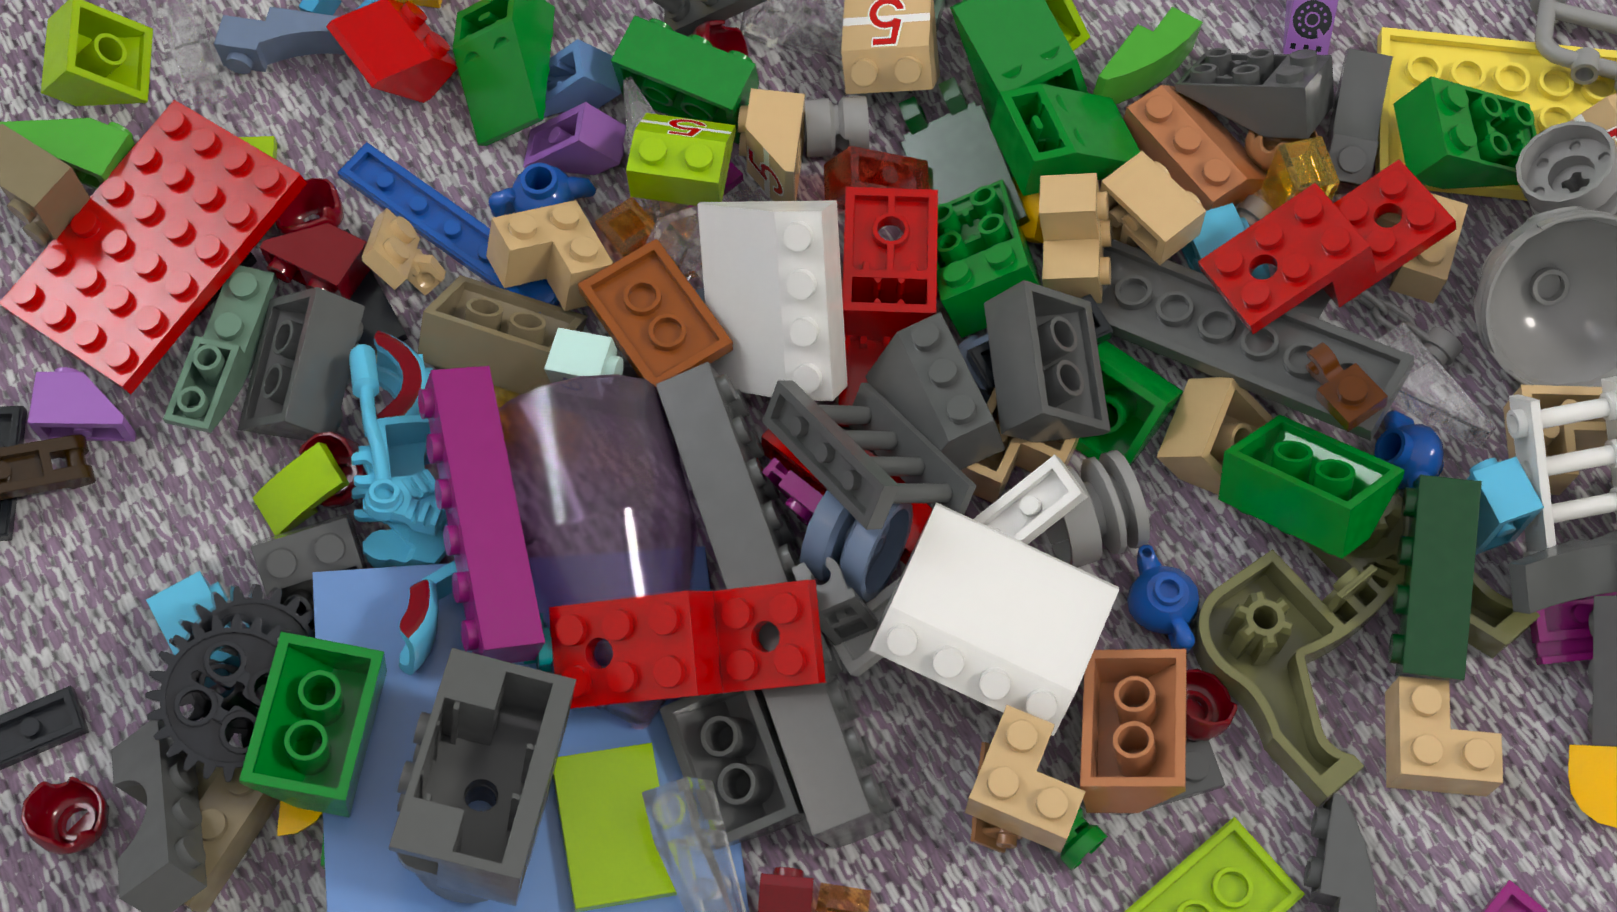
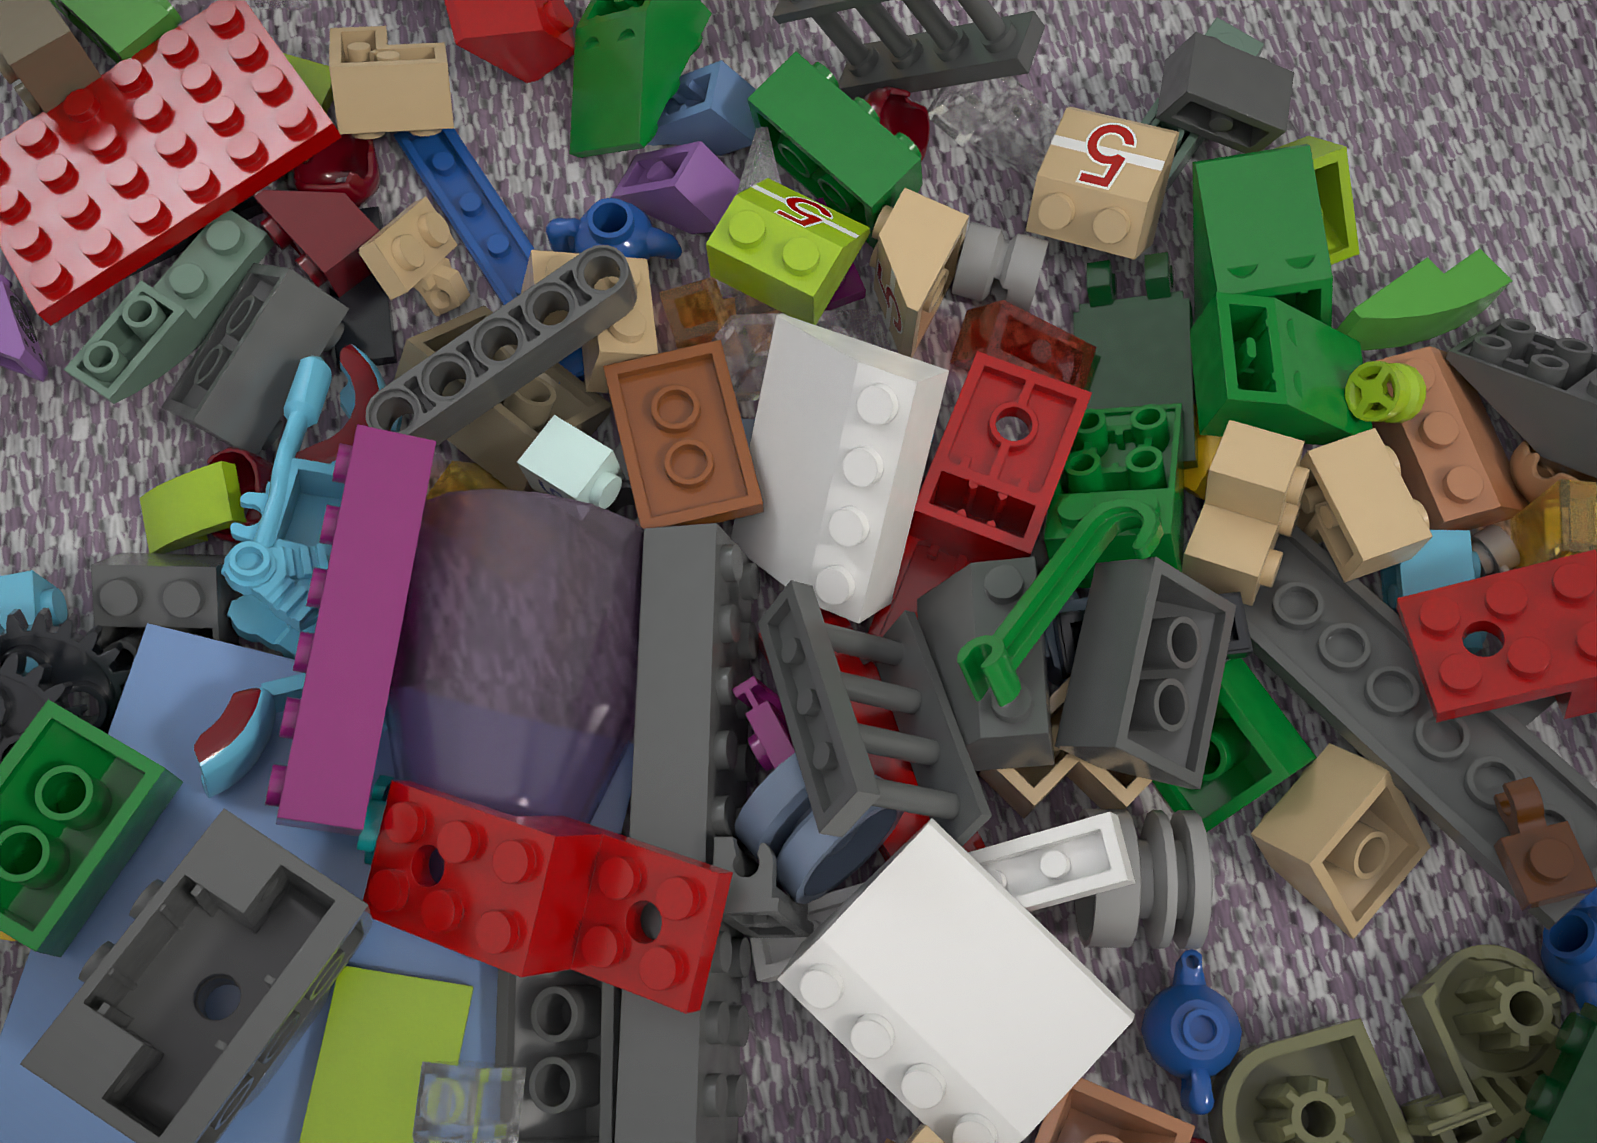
camera: 20 degrees right, 5 degrees up
(326, 135) = (388, 85): none -> tan brick
(509, 272) = (517, 324): none -> dark grey beam
(940, 381) = (994, 658): none -> green piece
(1130, 131) = (1369, 397): none -> lime wheel
(1308, 485) = (1443, 957): green slope -> none

